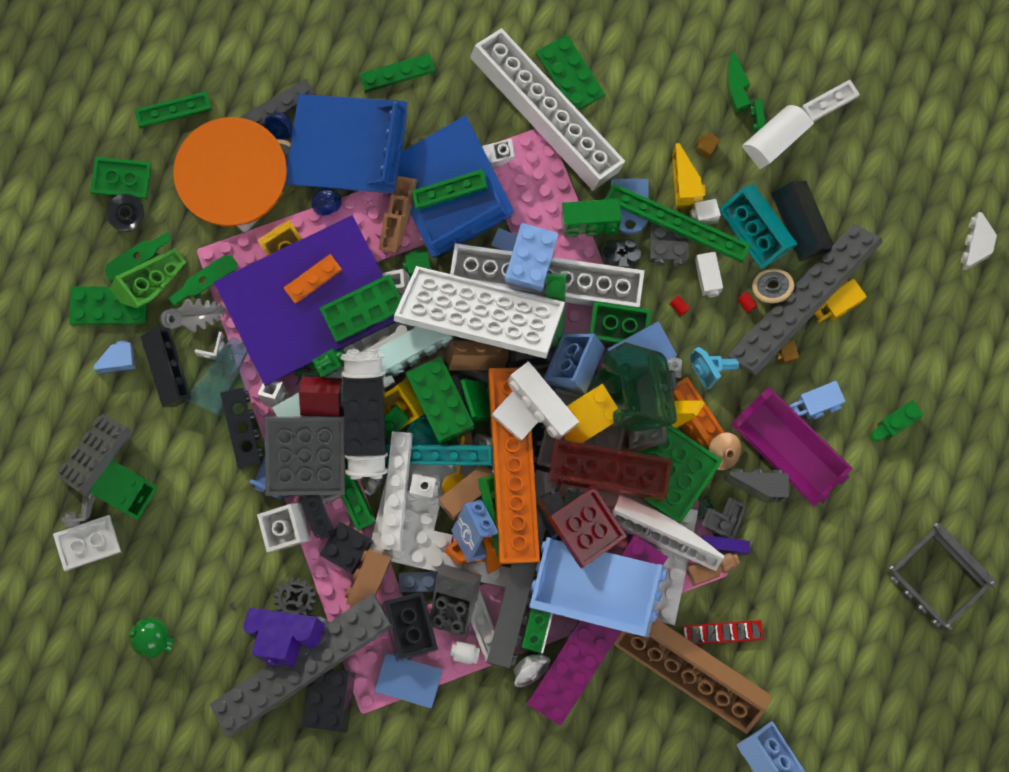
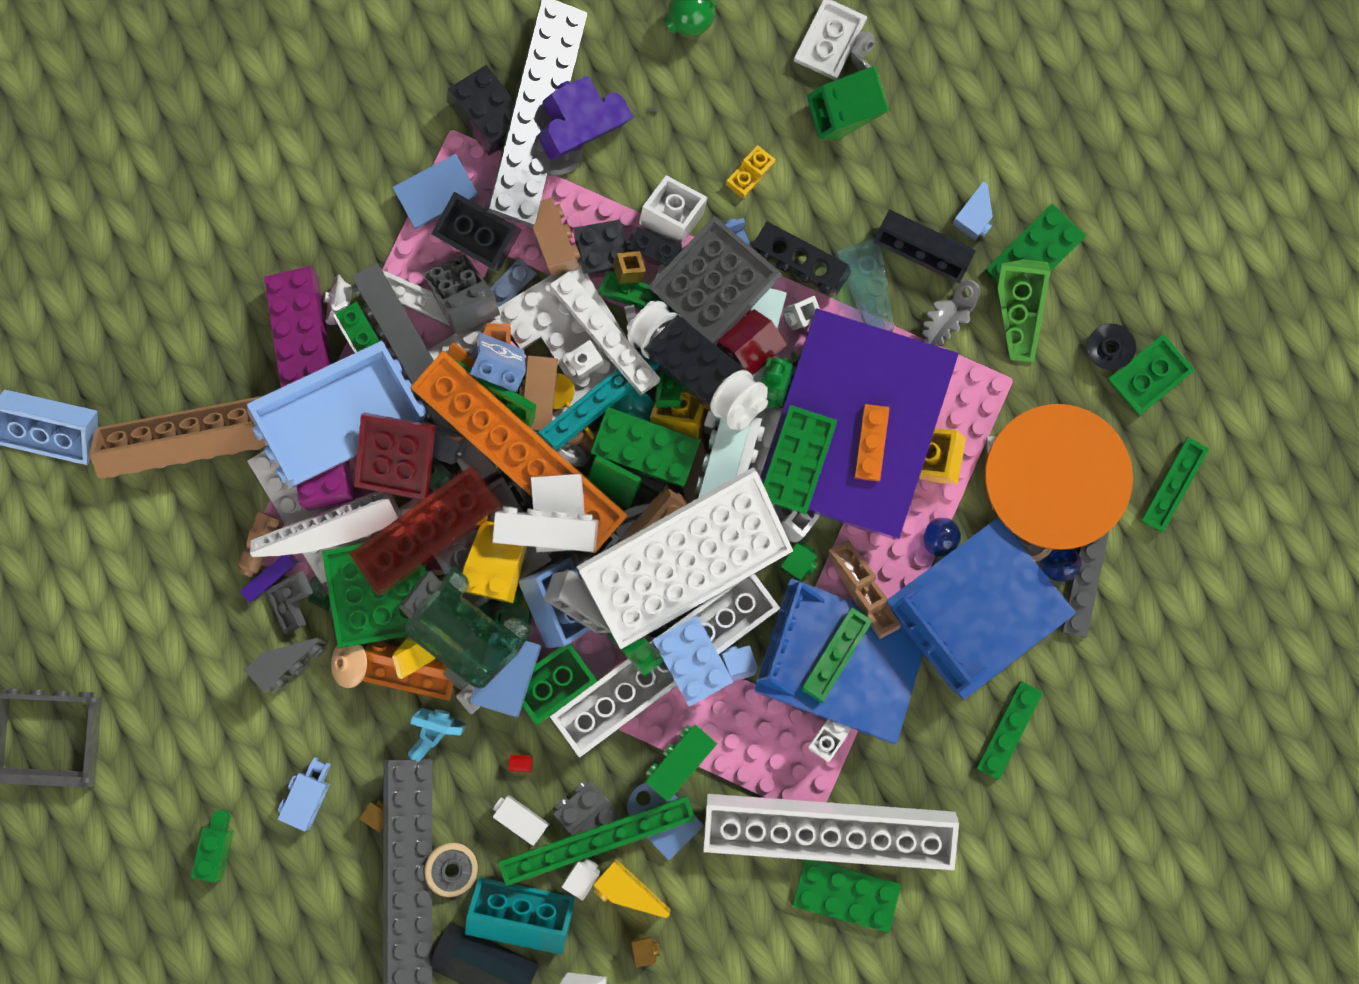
camera: 140 degrees right, 5 degrees up
(93, 453) = (901, 106): dark grey plate -> none
(128, 260) = (1059, 306): green piece -> none
(212, 272) = (973, 370): green piece -> none
(215, 511) = (750, 172): none -> yellow slope
(219, 346) = (897, 312): white bracket -> none
(301, 594) = (614, 167): dark grey gear -> none
(343, 516) = (629, 267): none -> pearl gold plate
(465, 653) = (408, 259): white brick -> none
(563, 352) = (573, 598): none -> light grey slope
(628, 247) = (620, 771): black plate -> none
(723, 632) = (200, 499): tile -> none
(747, 302) = (460, 829): red hinge -> none
(792, 446) = (289, 727): magenta panel -> none
(842, 301) = (369, 919): yellow brick -> none

